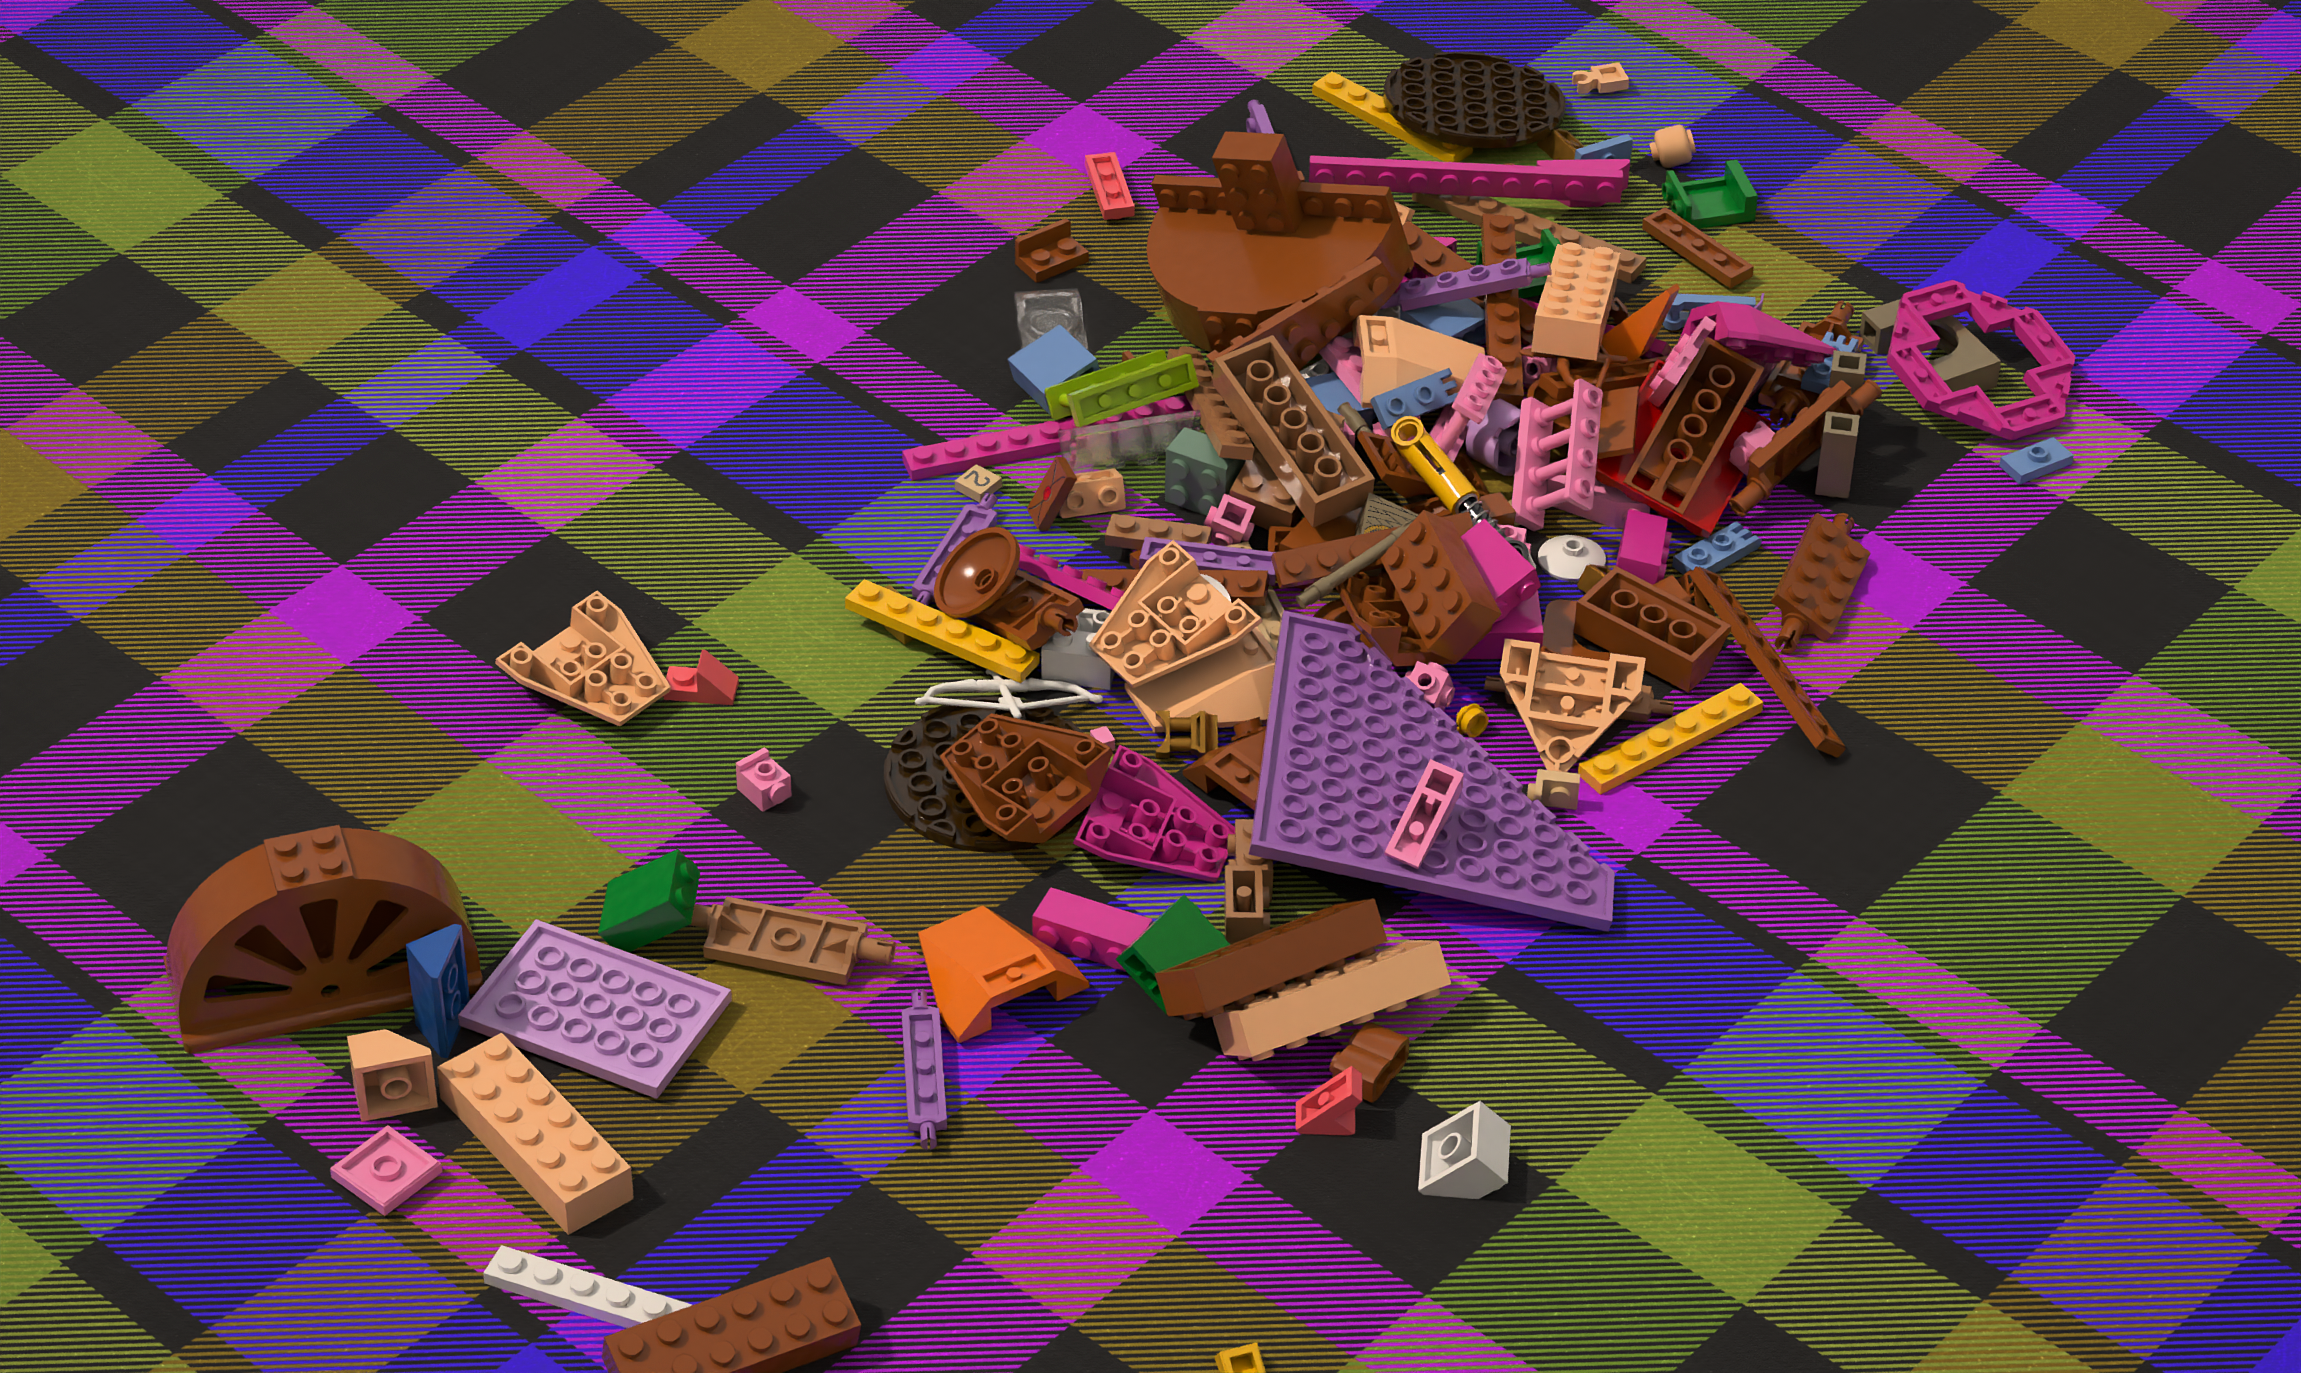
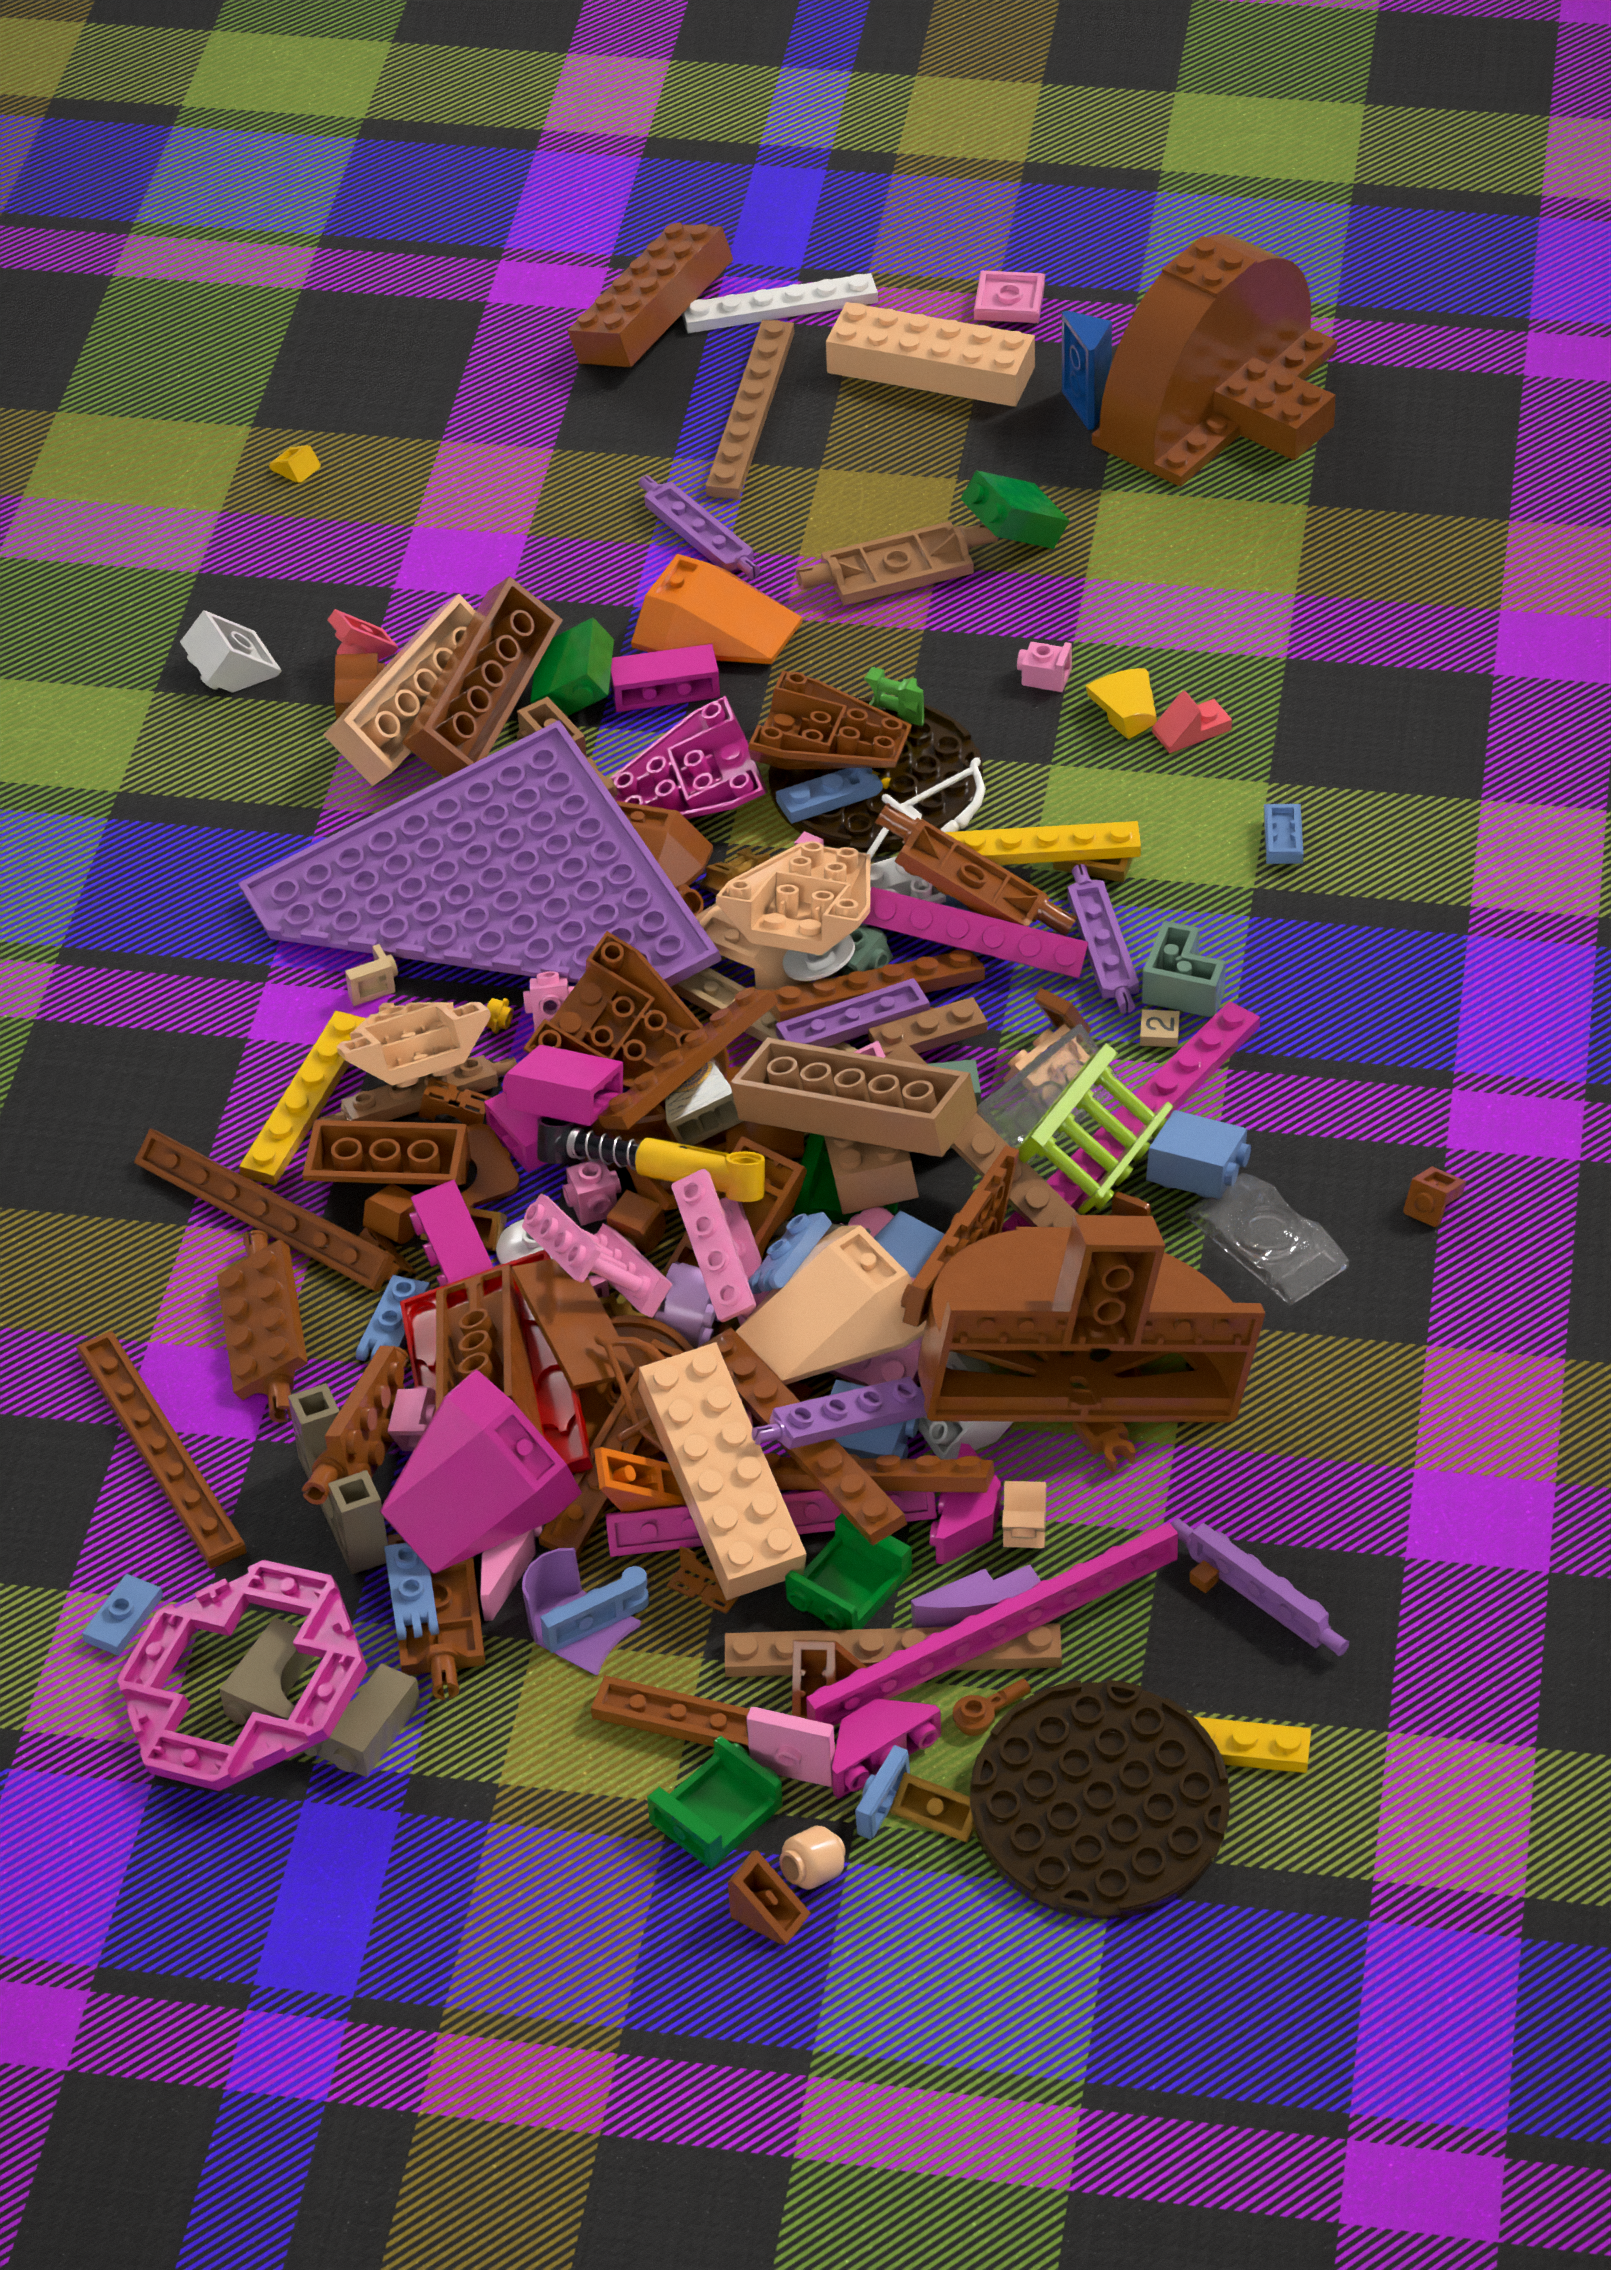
camera: 150 degrees right, 5 degrees up
(390, 1075) = (1047, 316): light nougat slope -> none
(592, 664) = (1288, 667): light nougat wedge -> none
(596, 1008) = (938, 452): lavender plate -> none
(730, 721) = (1126, 700): none -> yellow slope
(734, 564) = (1283, 834): none -> medium blue plate
(745, 1188) = (750, 409): none -> medium nougat plate
(913, 293) = (1430, 1195): none -> dark orange bracket
(927, 791) = (910, 697): none -> bright green piece
(931, 488) = (1181, 977): none -> sand green brick
(977, 572) = (1027, 867): dark orange dish -> none
(1049, 251) = (1359, 1325): dark orange bracket -> none
(1109, 186) = (1387, 1444): coral plate -> none
(1326, 584) = (665, 1046): dark tan piece -> none
(1425, 814) = (439, 831): bright pink slope -> none
(1440, 586) = (583, 1010): dark orange brick -> none
(1448, 213) = (969, 1597): none -> medium lavender slope
(1591, 220) = (818, 1665): none -> dark orange slope
(1604, 78) = (982, 1942): light nougat plate -> none
(1645, 179) = (792, 1745): none -> bright pink plate
(1678, 361) = (533, 1387): bright pink wing -> none
(1722, 143) = (765, 1901): none -> dark orange slope
(1947, 551) = (161, 1450): none -> dark orange tile

